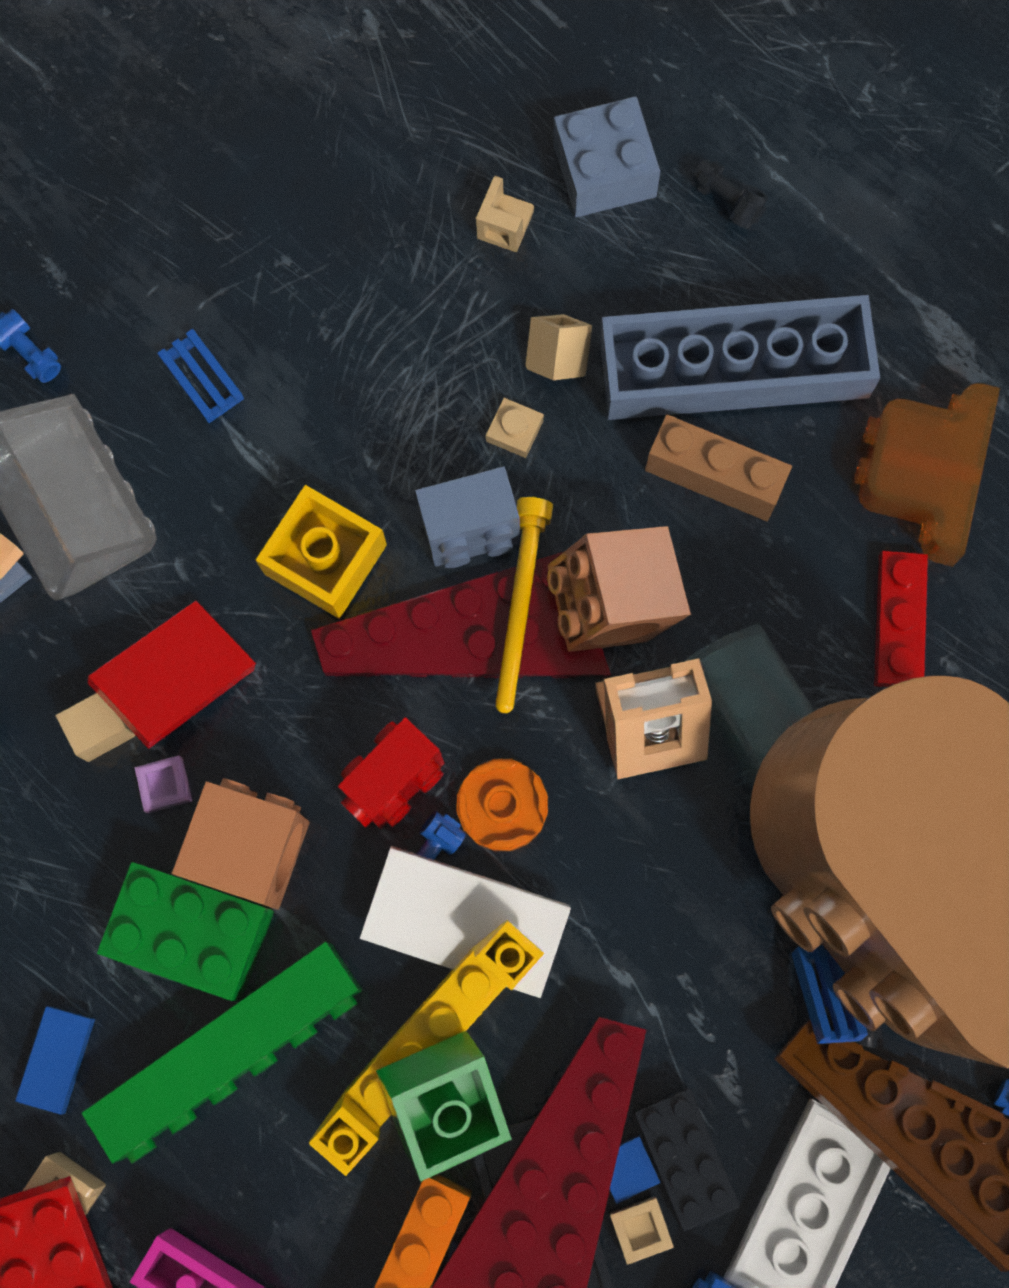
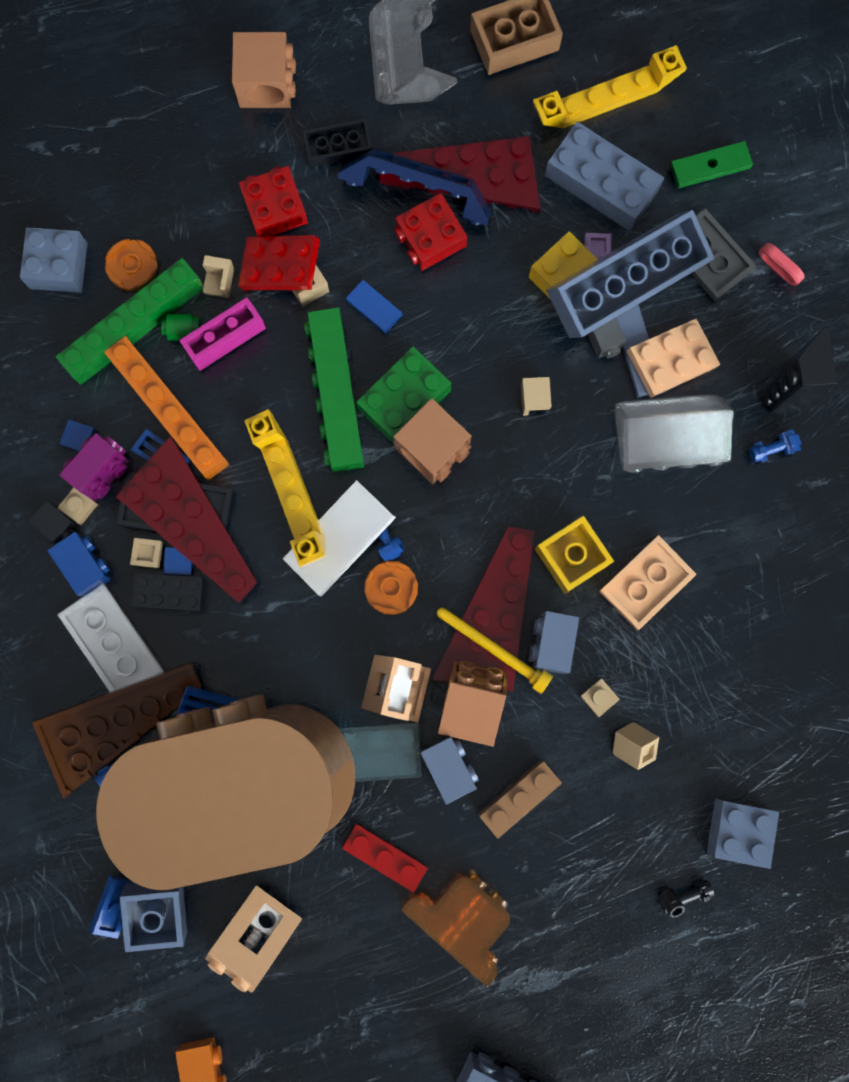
camera: 110 degrees right, 5 degrees up
(163, 784) = (488, 418): lavender tile -> none
(171, 674) = (544, 446): red tile -> none
(181, 348) = (735, 532): blue tile -> none
(313, 434) = (647, 583): none -> light nougat plate
(391, 775) = (429, 526): red brick -> none
(444, 1105) = (253, 482): green brick -> none
(503, 218) = (732, 754): tan panel -> none
(732, 580) = (448, 769): none -> sand blue brick
(738, 357) = (578, 845): sand blue brick -> none

